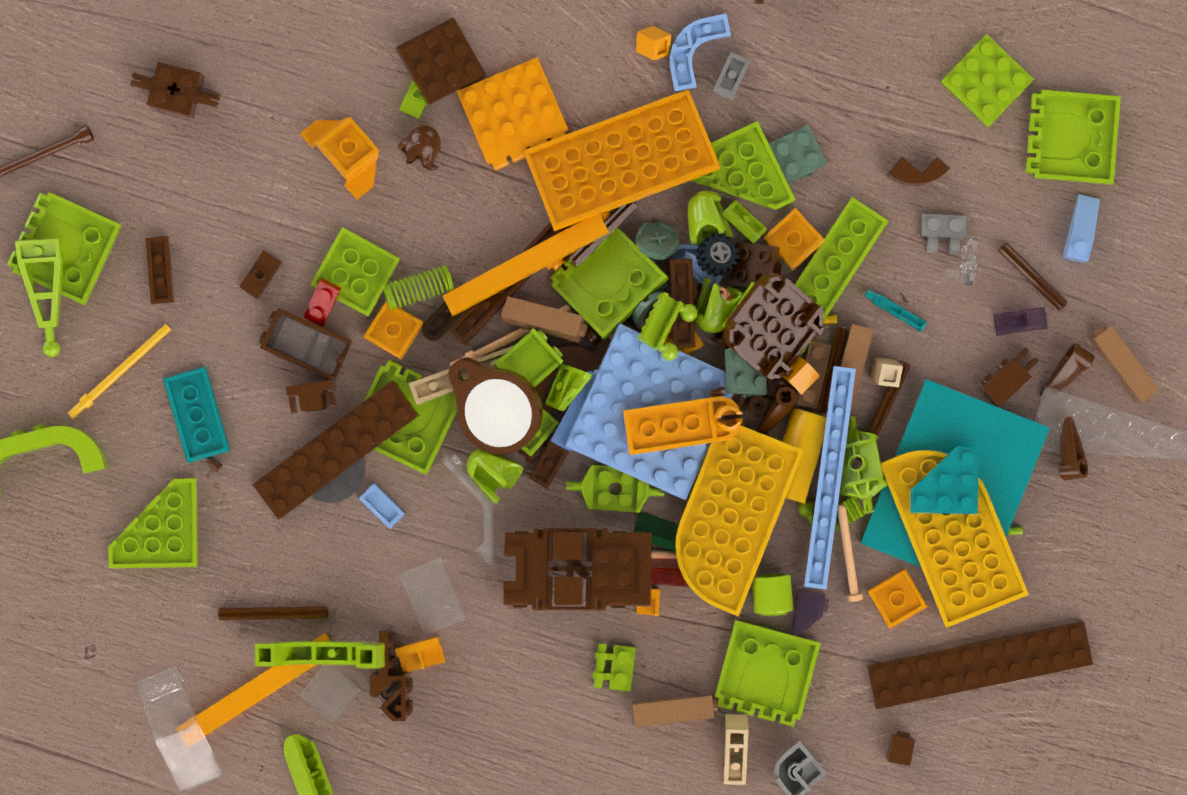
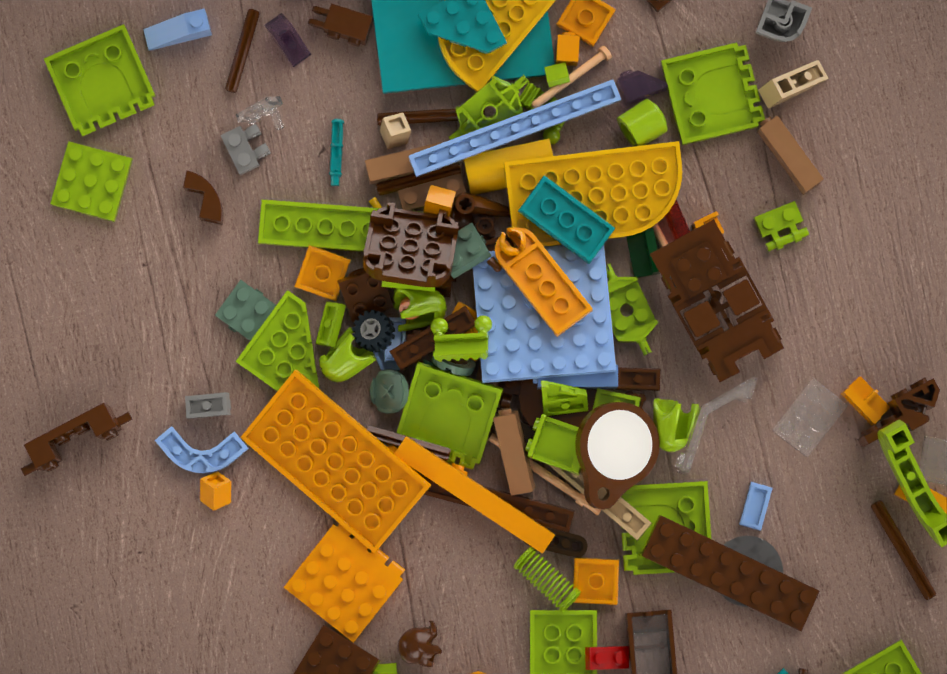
camera: 120 degrees left, 5 degrees down
(311, 396) = (695, 620): reddish brown panel -> none
(722, 477) = (566, 219): none -> teal tile
(858, 542) = (557, 74): none -> lime tile
(876, 565) = (567, 49): none -> light orange brick

